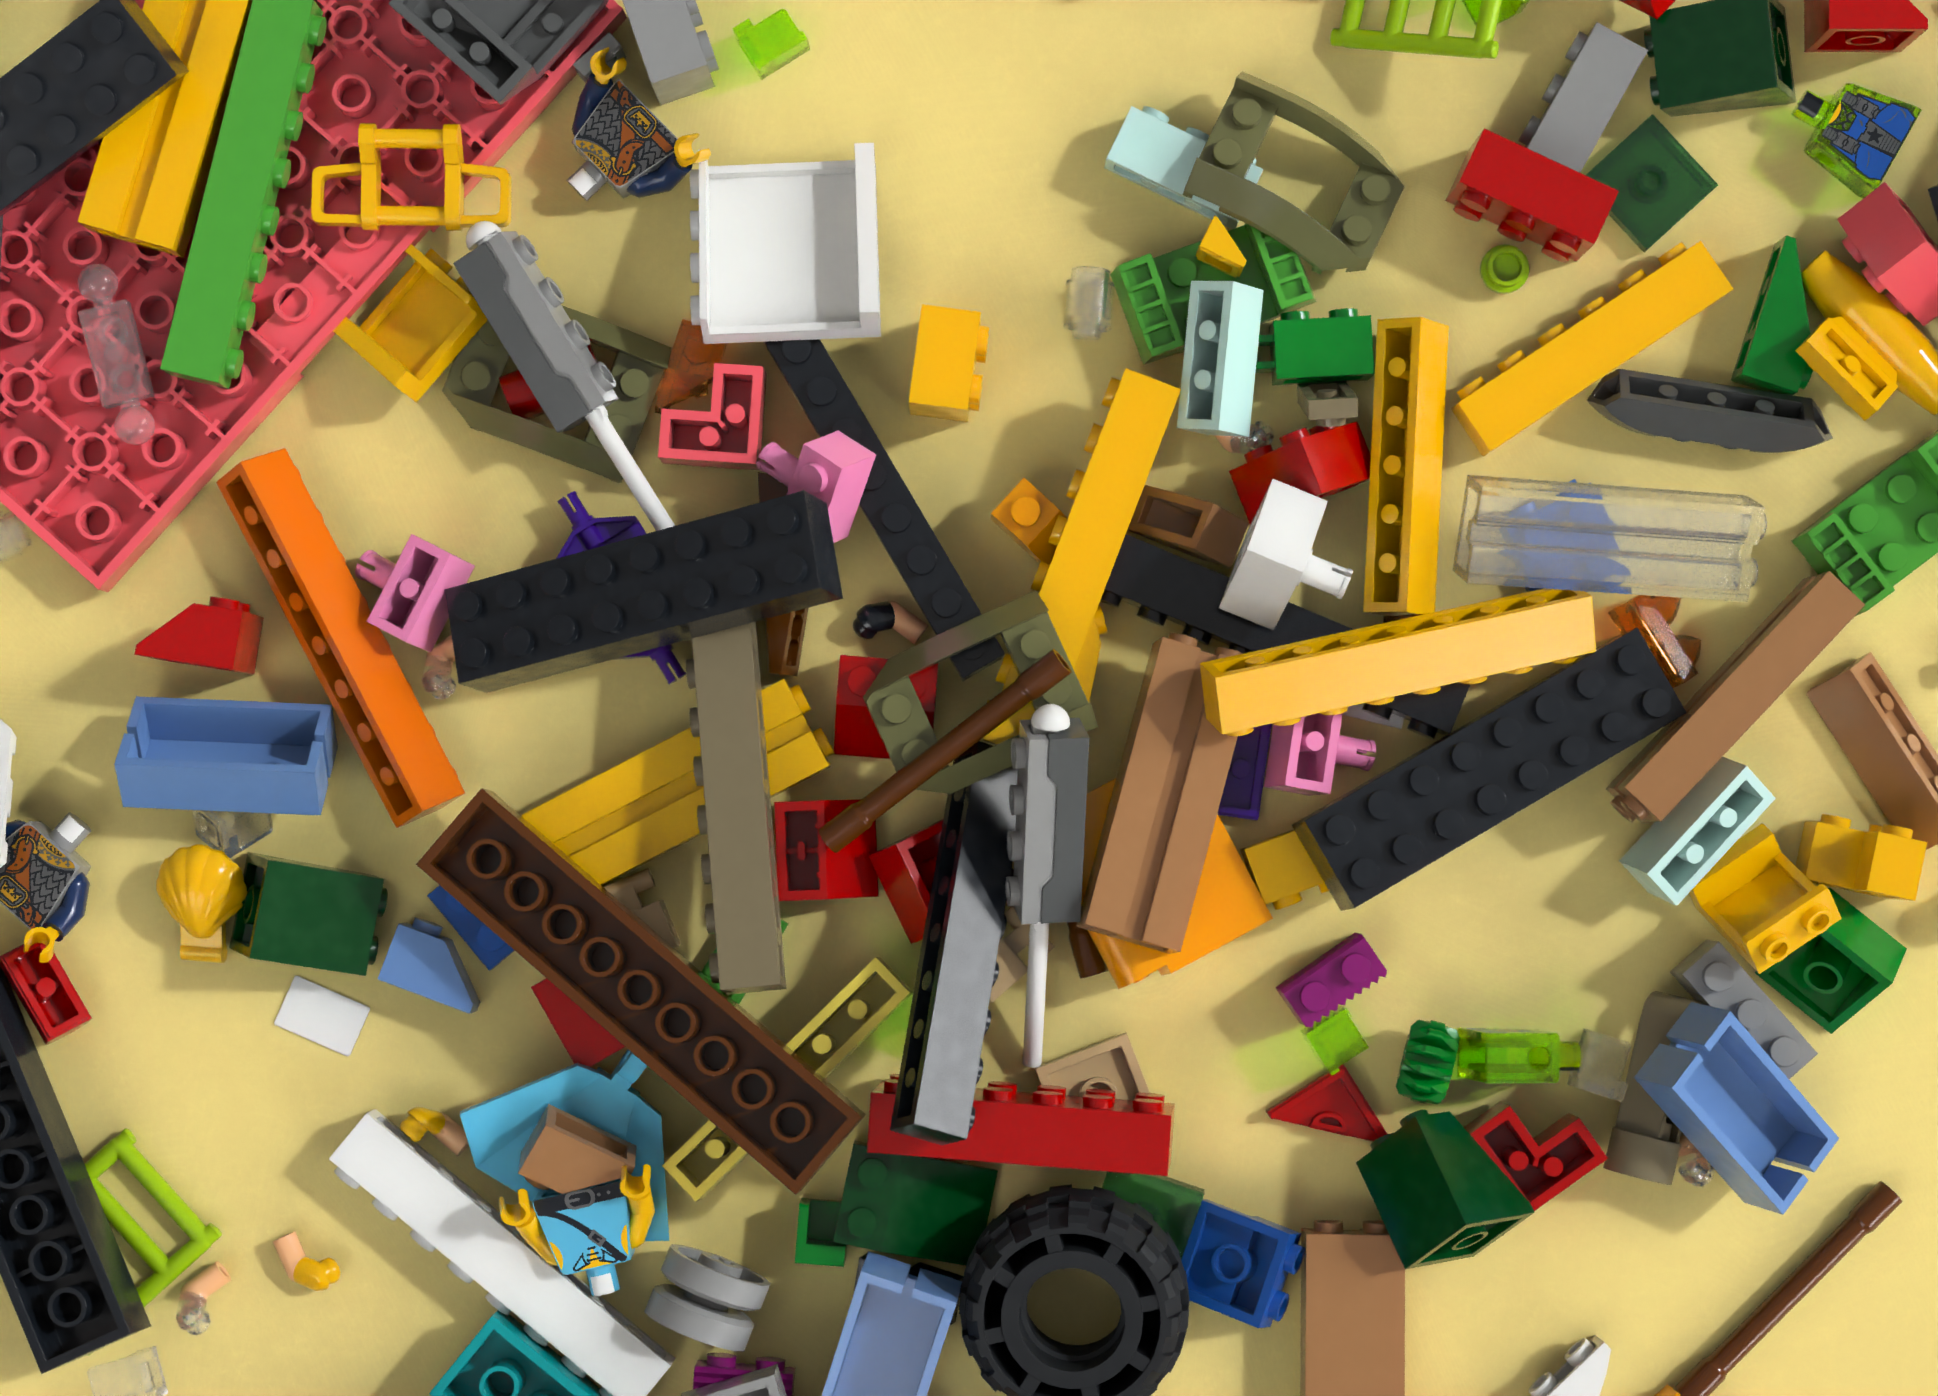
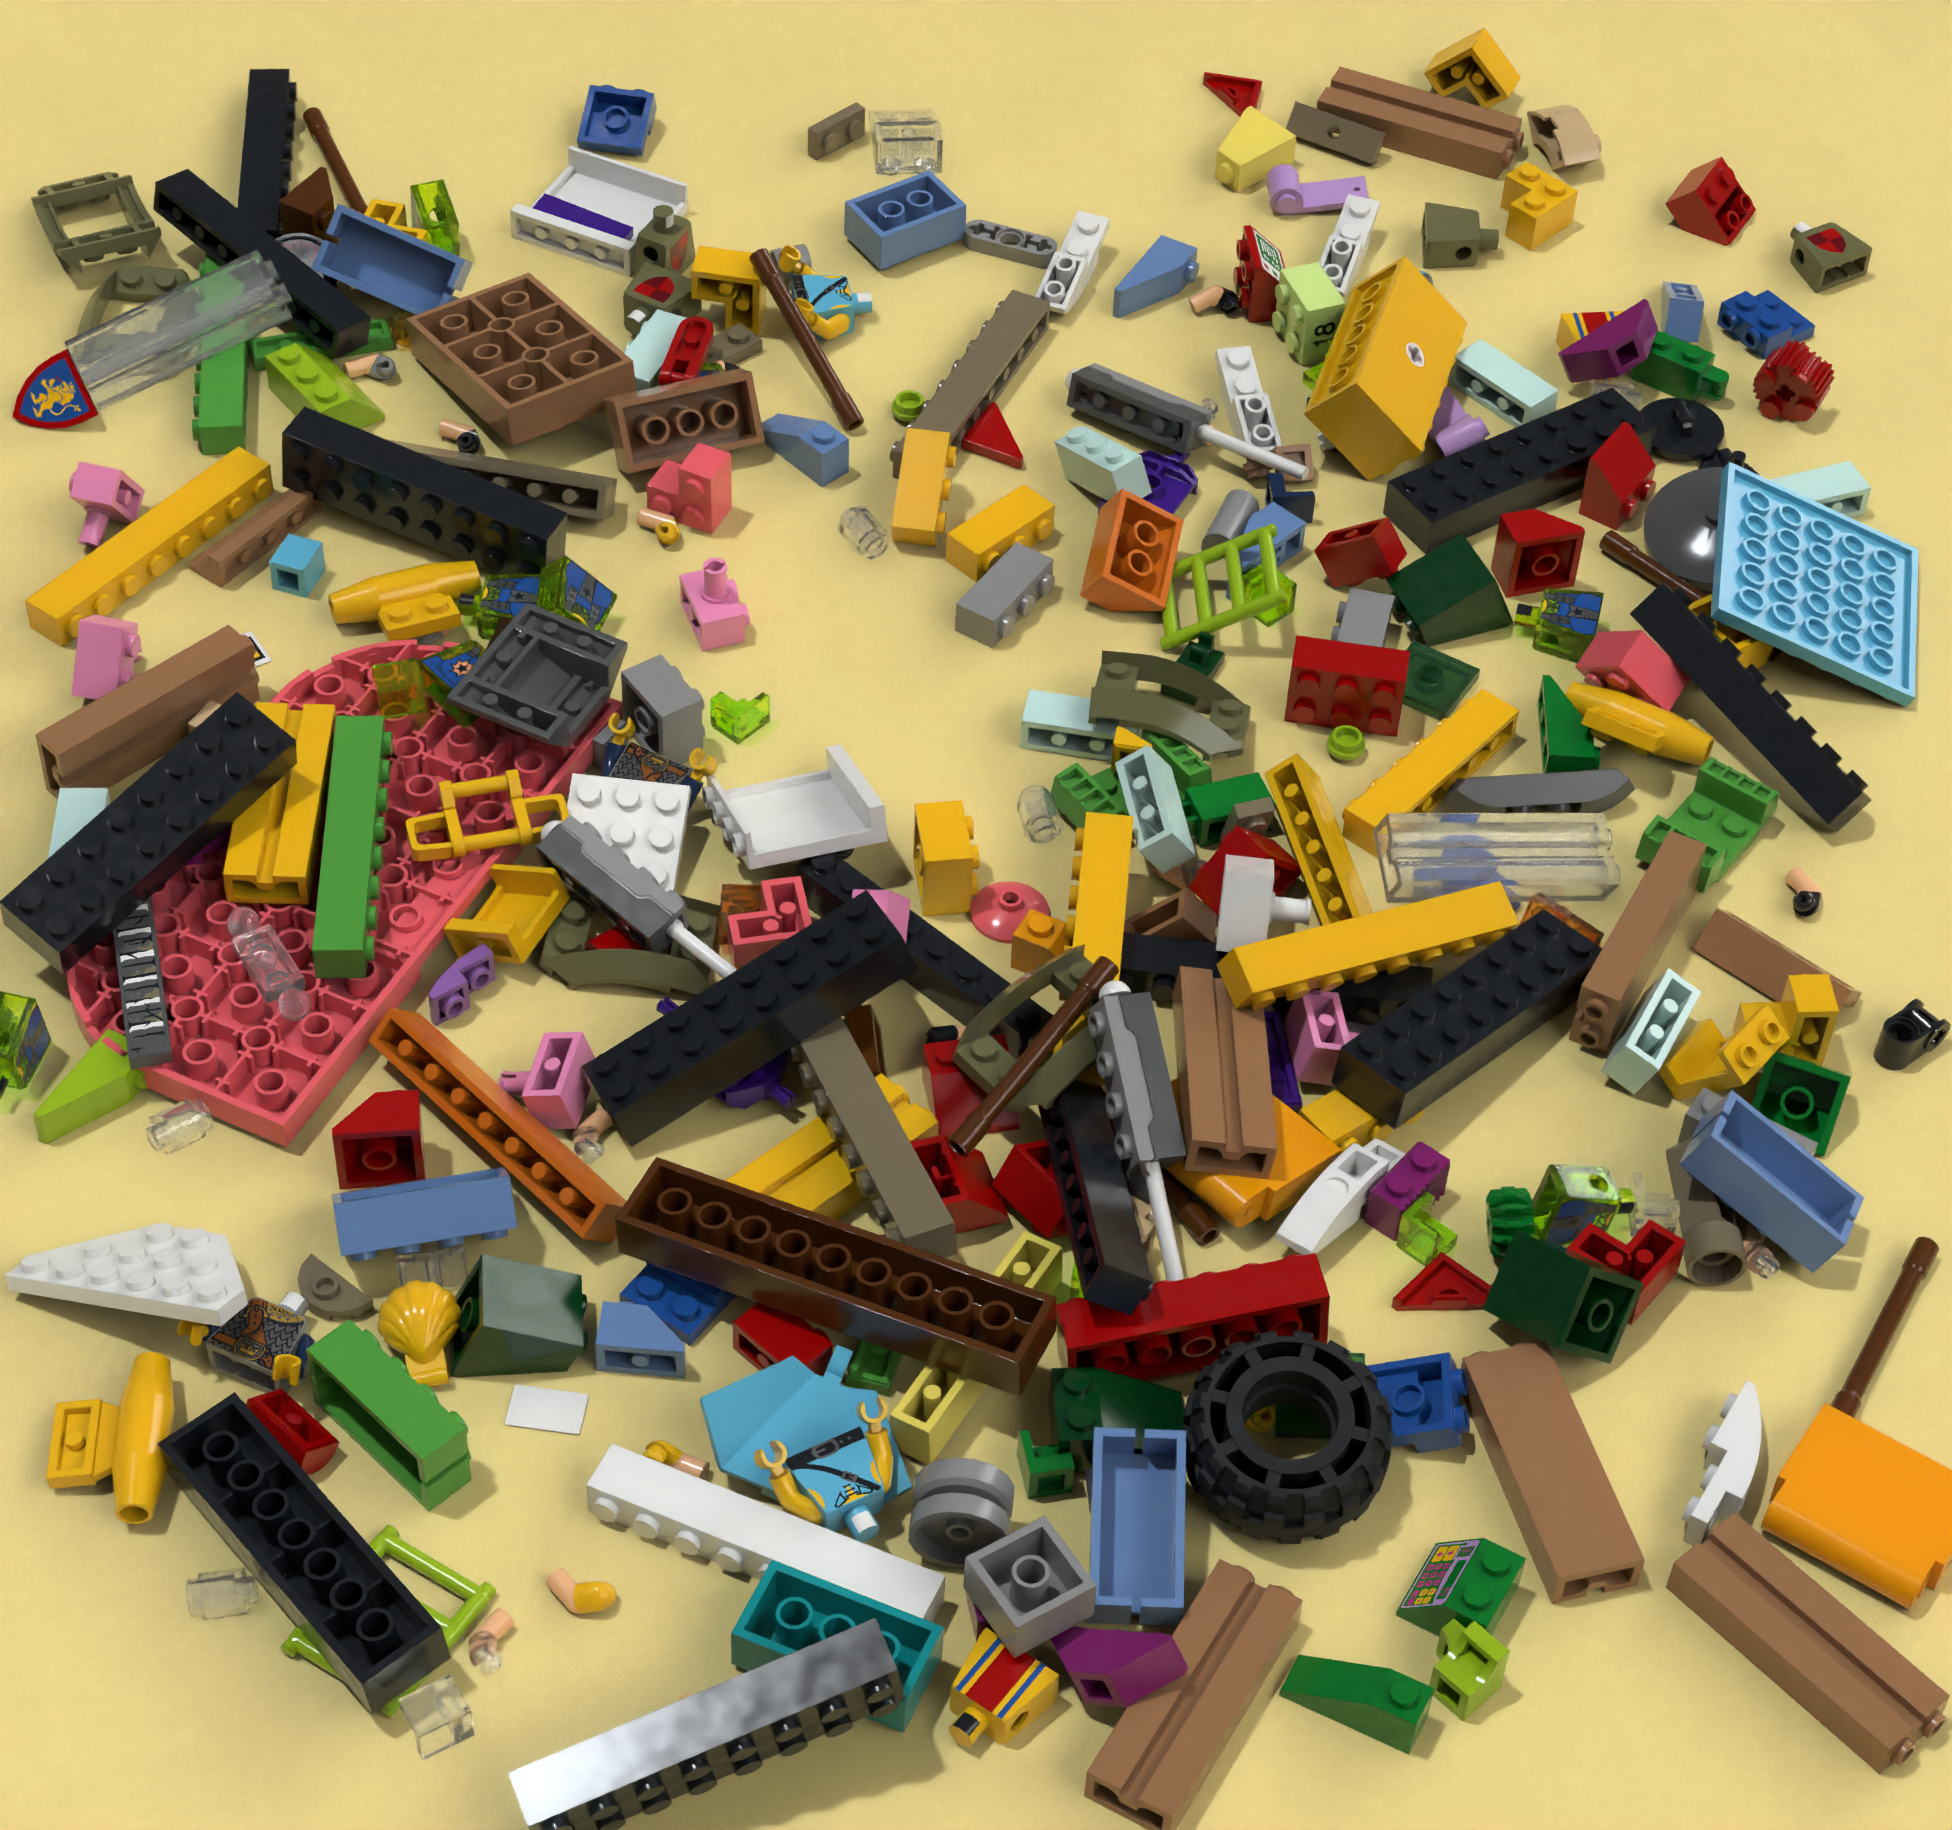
camera: 20 degrees left, 40 degrees down
(106, 810) = (329, 1292): none -> dark tan plate
(142, 1015) = (390, 1414): none -> bright green piece
(330, 418) = (451, 991): none -> medium lavender slope
(572, 1154) = (805, 1421): medium nougat slope -> none
(585, 223) = (636, 816): none -> white plate
(1010, 460) = (1002, 907): none -> coral dish
(1256, 970) = (1336, 1197): none -> white slope
(1362, 88) = (1200, 657): none -> dark green plate

